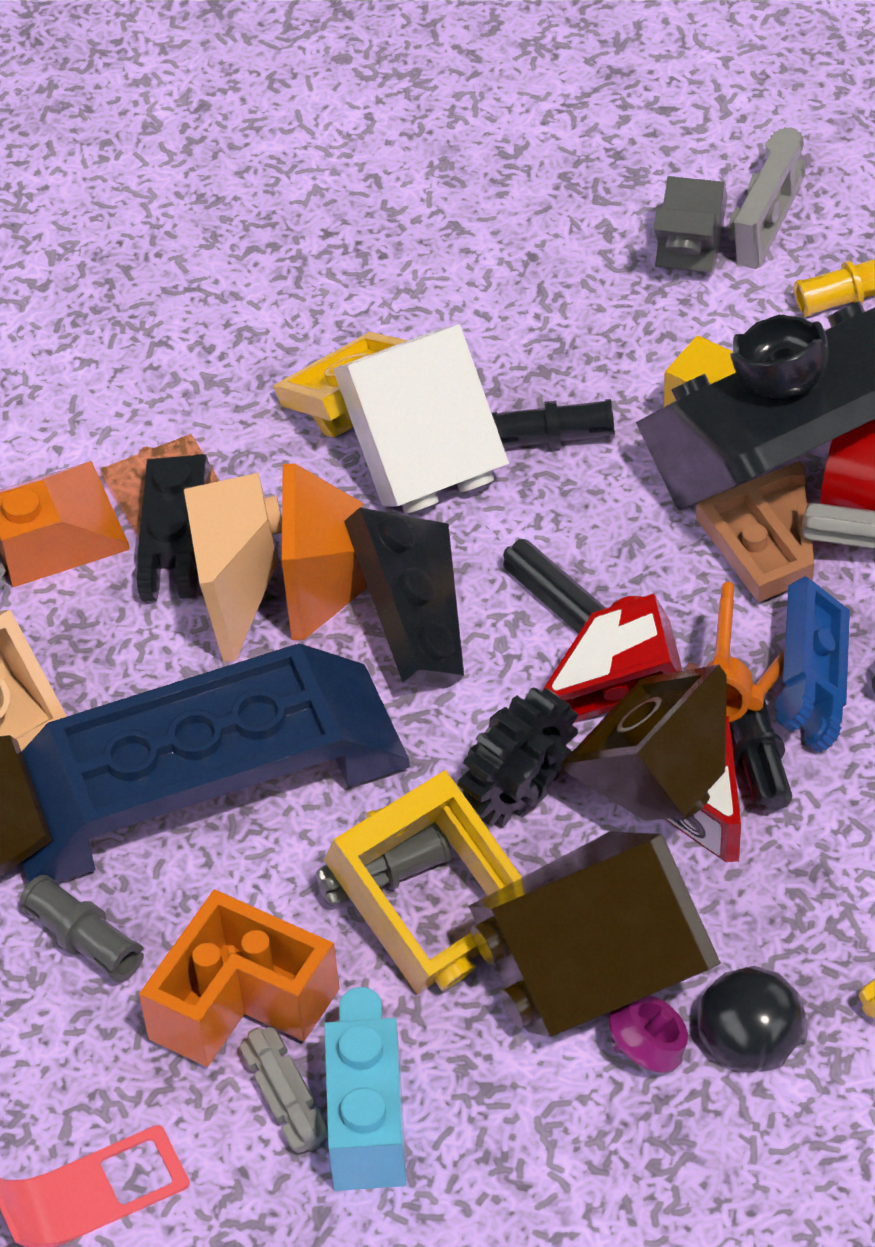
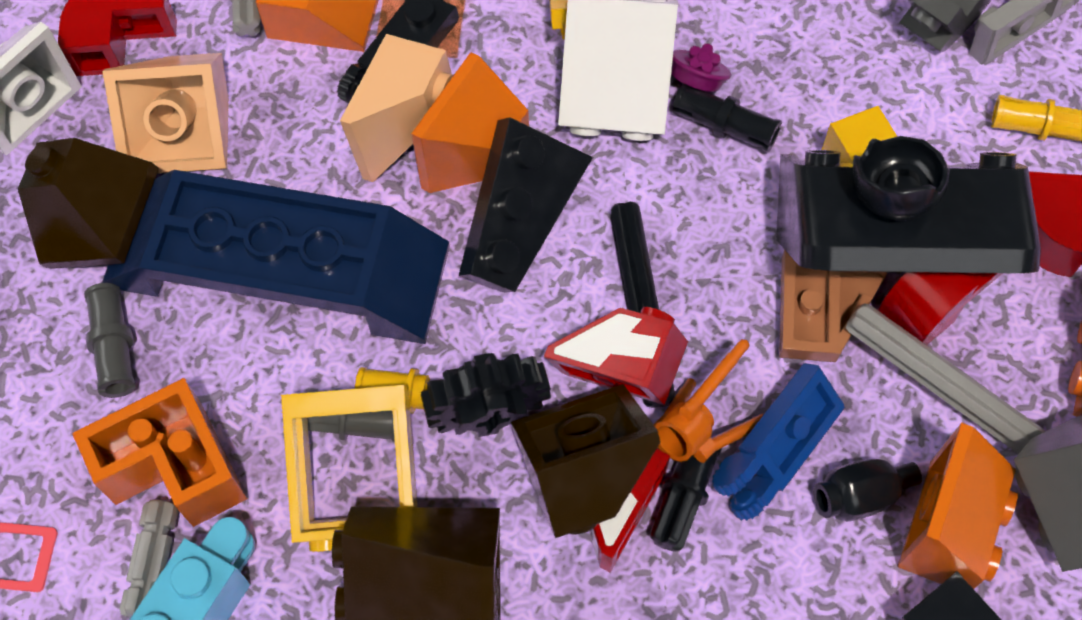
camera: 30 degrees right, 15 degrees up
(501, 390) = (700, 68): none -> magenta hat

